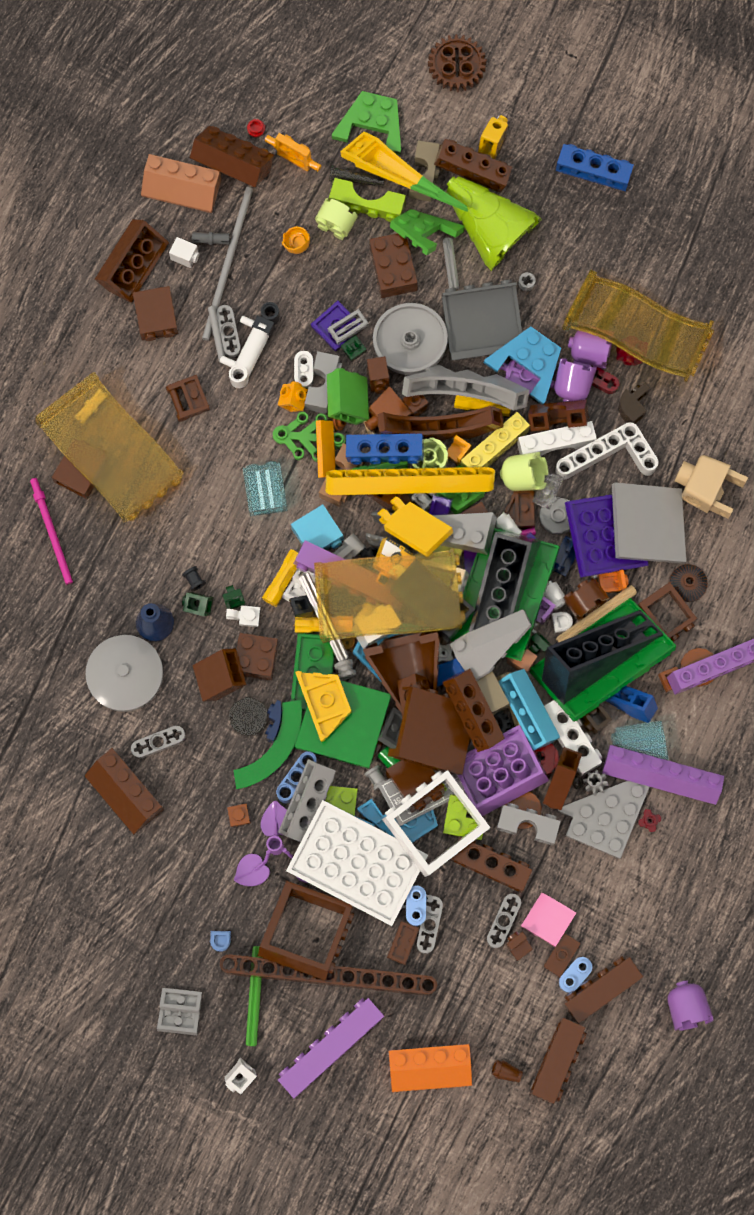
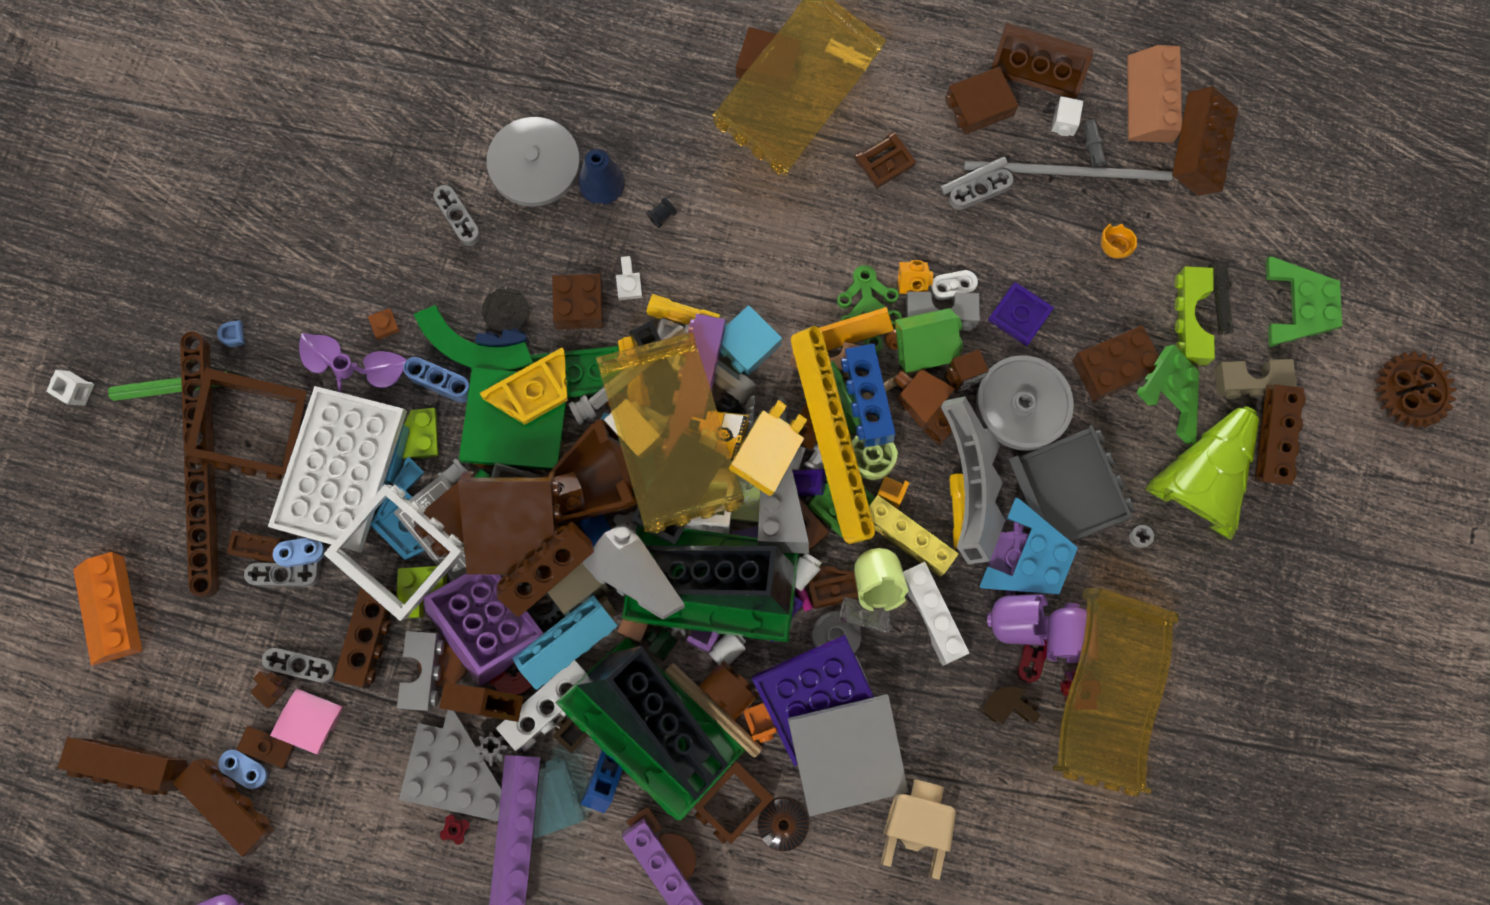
camera: 75 degrees right, 0 degrees up
(39, 497) = (725, 24): dark pink bar -> none
(123, 791) = (392, 190): reddish brown slope -> none
(179, 1011) = (141, 305): light grey slope -> none
(205, 604) = (630, 223): dark green brick -> none
(219, 674) = (543, 261): reddish brown brick -> none
(233, 598) = (645, 261): dark green tile -> none
(256, 128) = (1252, 166): red plate -> none
(261, 332) = (990, 225): white piece -> none
(264, 488) = (790, 270): clear light blue brick -> none
(293, 152) = (1232, 212): light orange plate -> none
(304, 791) = (441, 394): light grey brick -> none
(331, 1048) = (115, 486): medium lavender brick -> none
(336, 218) = (1159, 280): yellowish green brick -> none
(352, 332) = (1015, 331): light grey tile -> none
(353, 348) = (996, 339): dark green tile -> none
(375, 157) = (1253, 315): yellow plate -> none
(444, 427) = (915, 460): reddish brown arch -> none
(450, 263) = (1139, 435): light grey axle -> none
(495, 133) = (1326, 453): yellow torso -> none
(505, 1071) = (109, 703): reddish brown cone -> none
(545, 415) = (963, 590): reddish brown arch -> none
(561, 621) = (696, 667): white tile -> none
(565, 557) = (778, 652): dark blue hinge -> none
(598, 175) = (1315, 604): blue brick -> none
(607, 449) = (937, 683): white beam -> none

